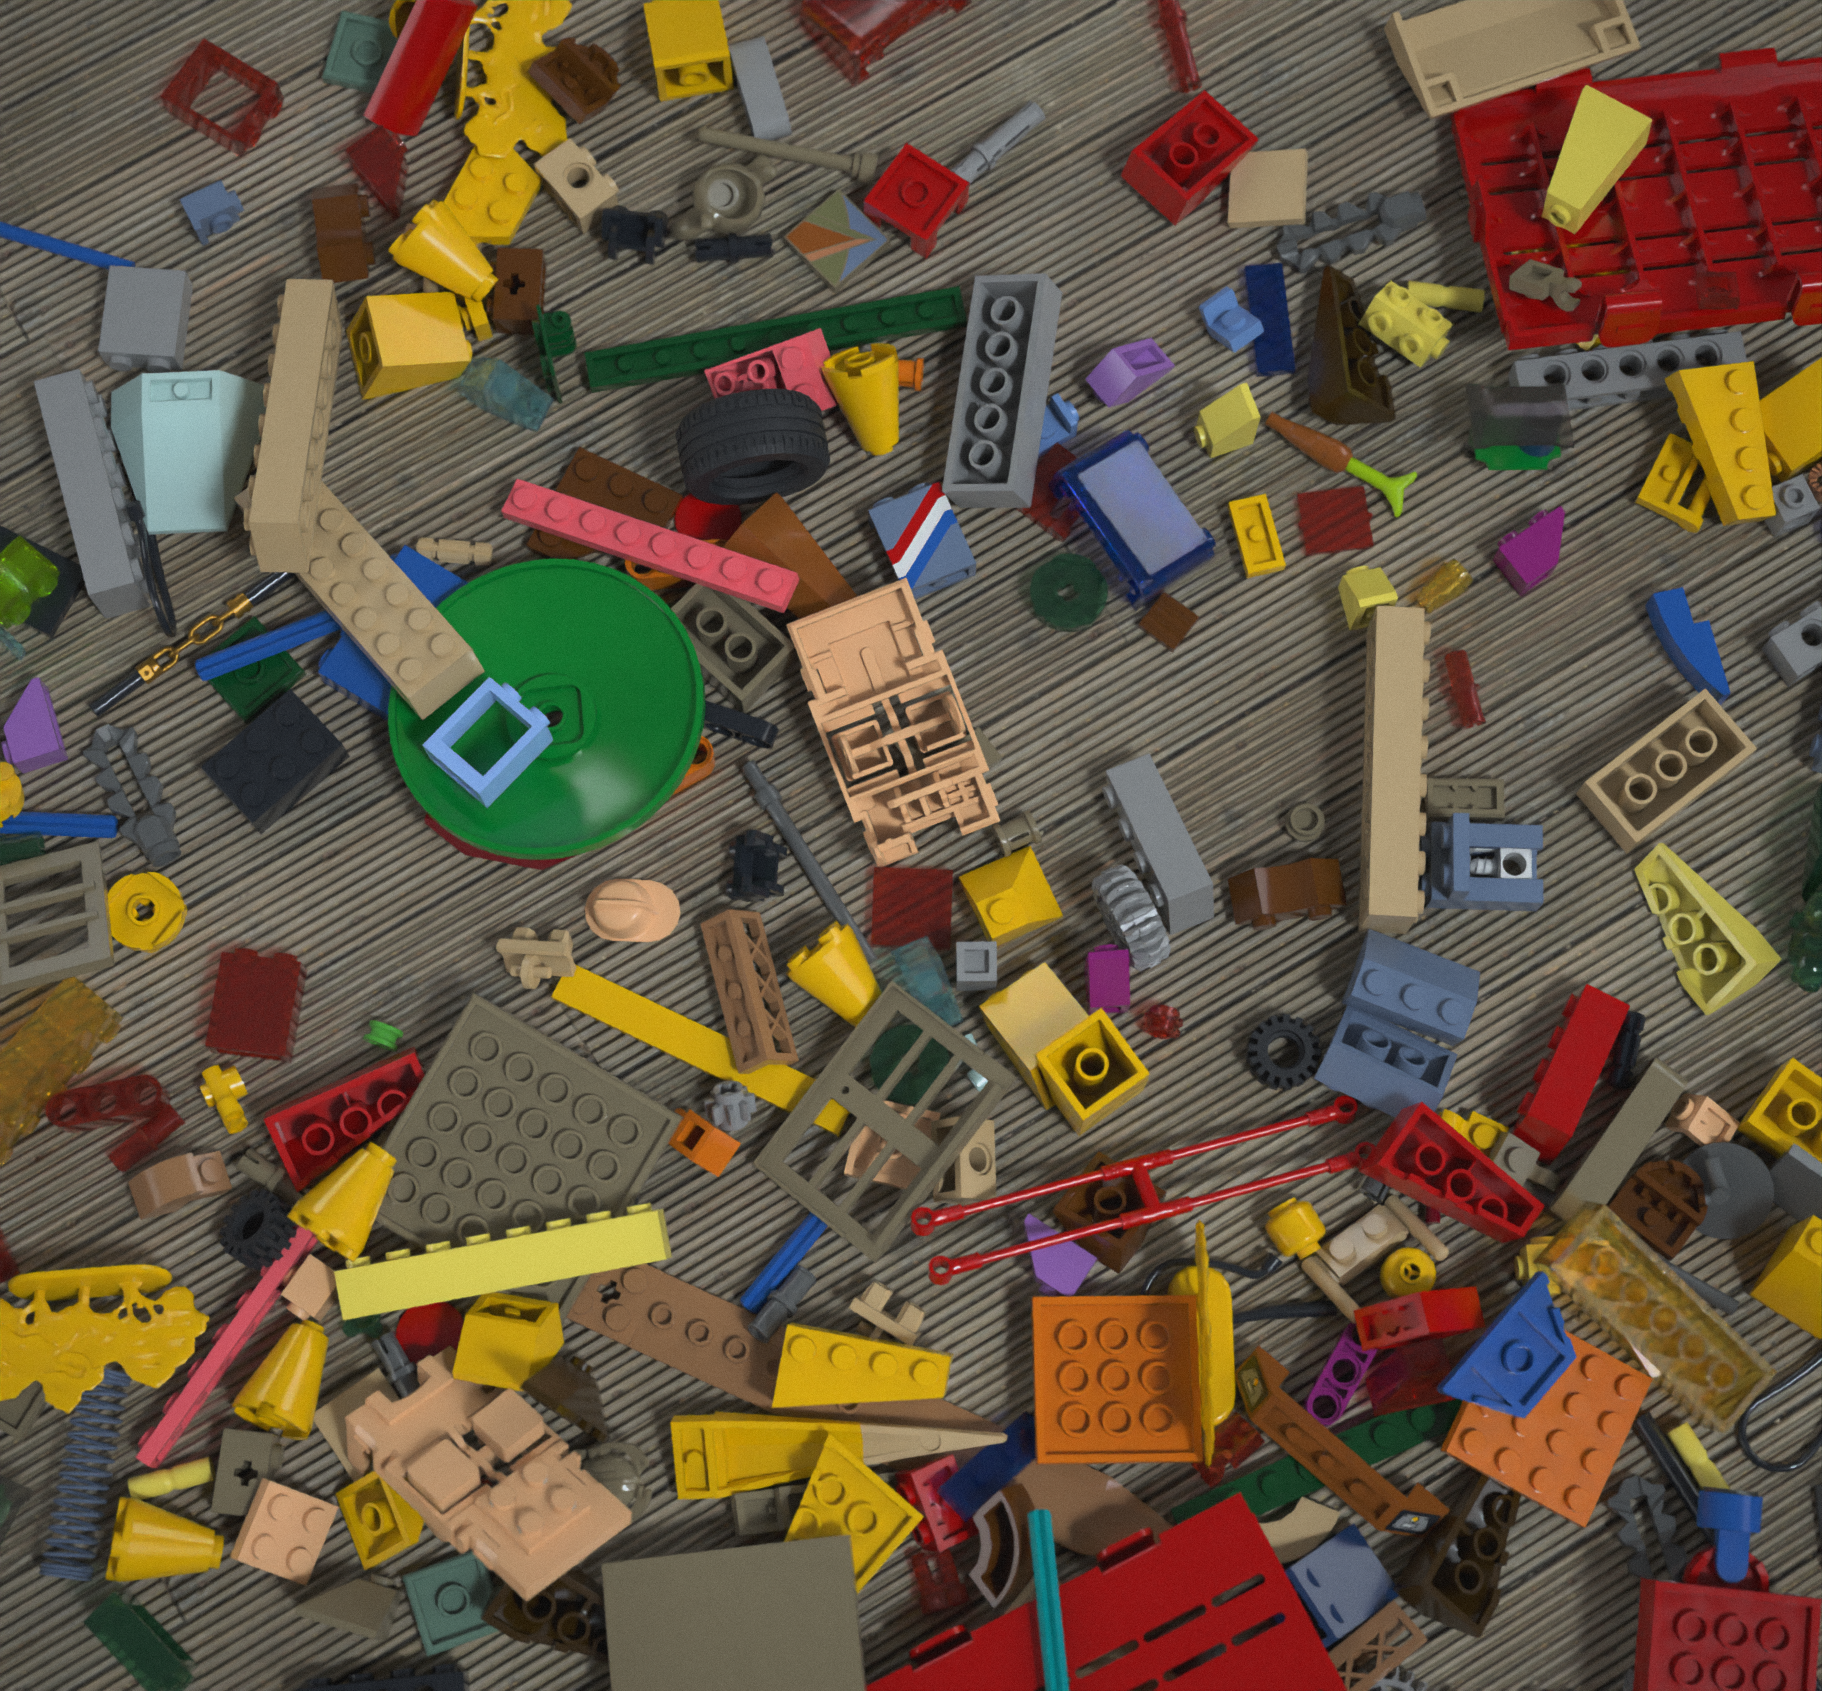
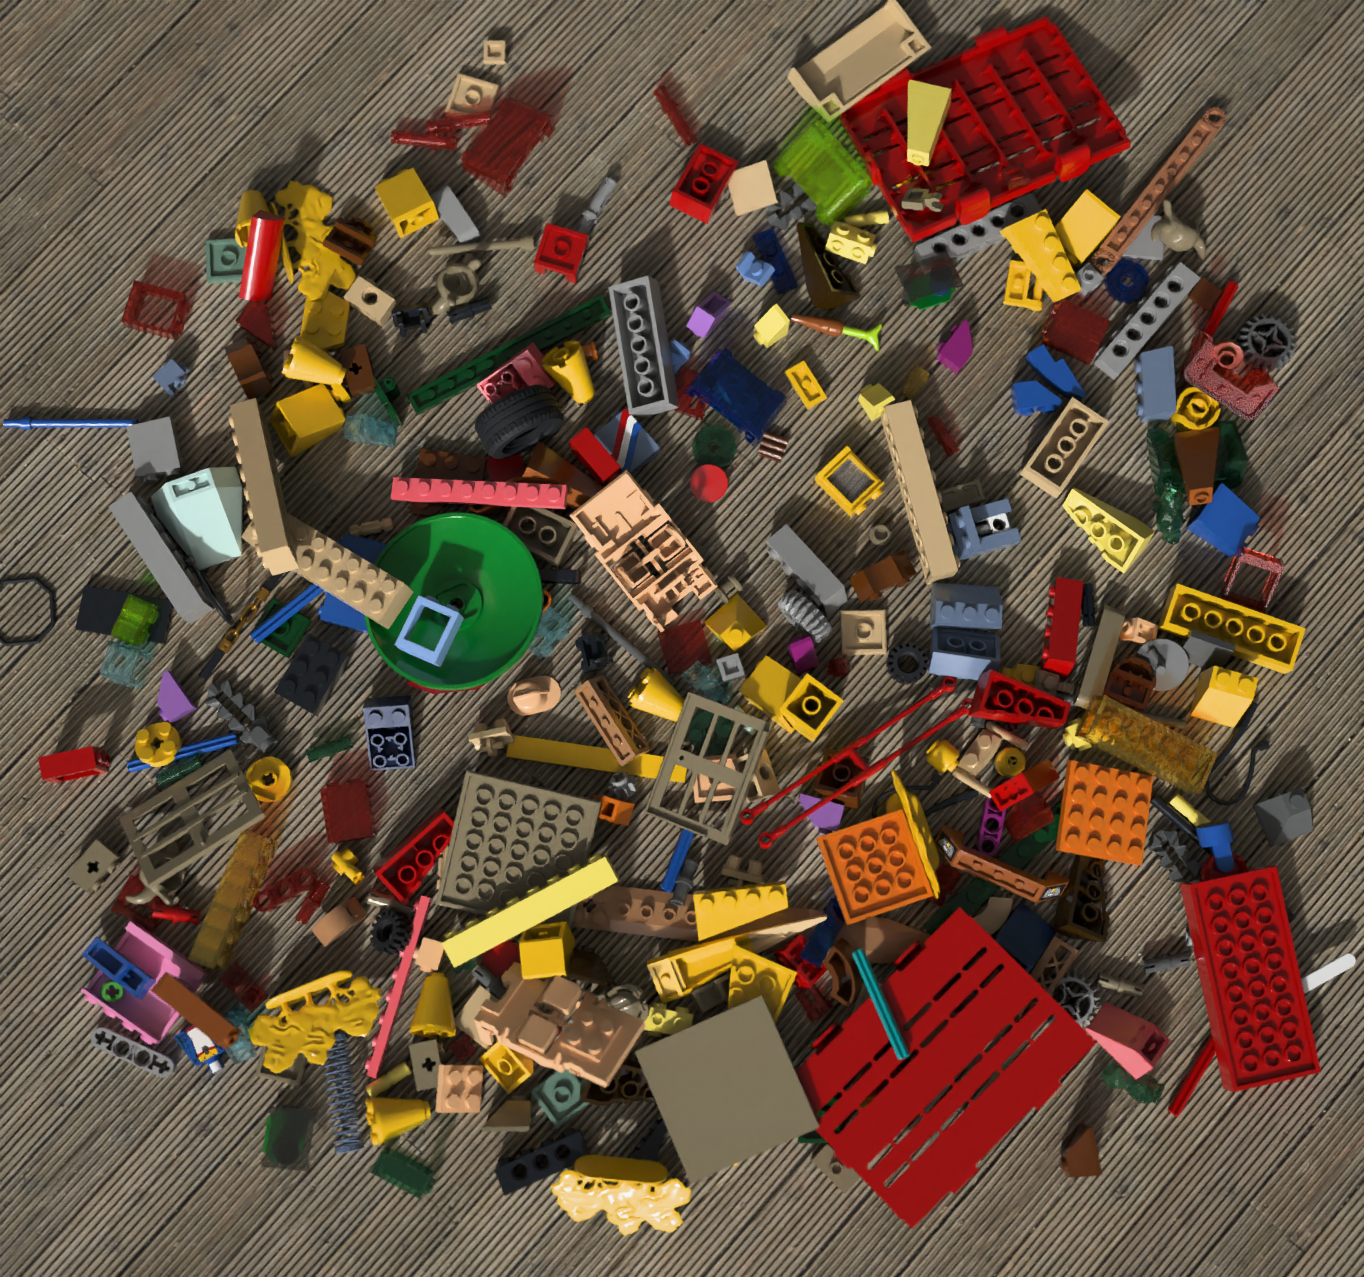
camera: 20 degrees left, 5 degrees up
(261, 891) = (329, 748): none -> clear green pin
(304, 1460) = (469, 1048): none -> clear red plate
(347, 1201) = (435, 904): yellow cone -> none
(370, 896) = (389, 732): none -> dark blue slope
(383, 1035) = (422, 806): bright green bush -> none
(674, 1531) = (667, 1021): none -> light yellow brick
(690, 822) = (550, 637): none -> clear light blue brick
(836, 240) = (524, 288): tile -> none
(860, 543) = (594, 457): none -> red window
(1040, 648) = (708, 483): none -> red piece
(1224, 977) = (863, 632): none -> tan tile
(1279, 718) = (849, 482): none -> window
(1335, 521) = (845, 363): clear red piece -> none
(1398, 198) = (824, 172): none -> clear neon green windscreen
(1515, 1356) = (1081, 788): blue wing -> none
(1638, 671) = (1033, 397): none -> blue slope
(1744, 583) = (1075, 331): none -> clear red brick

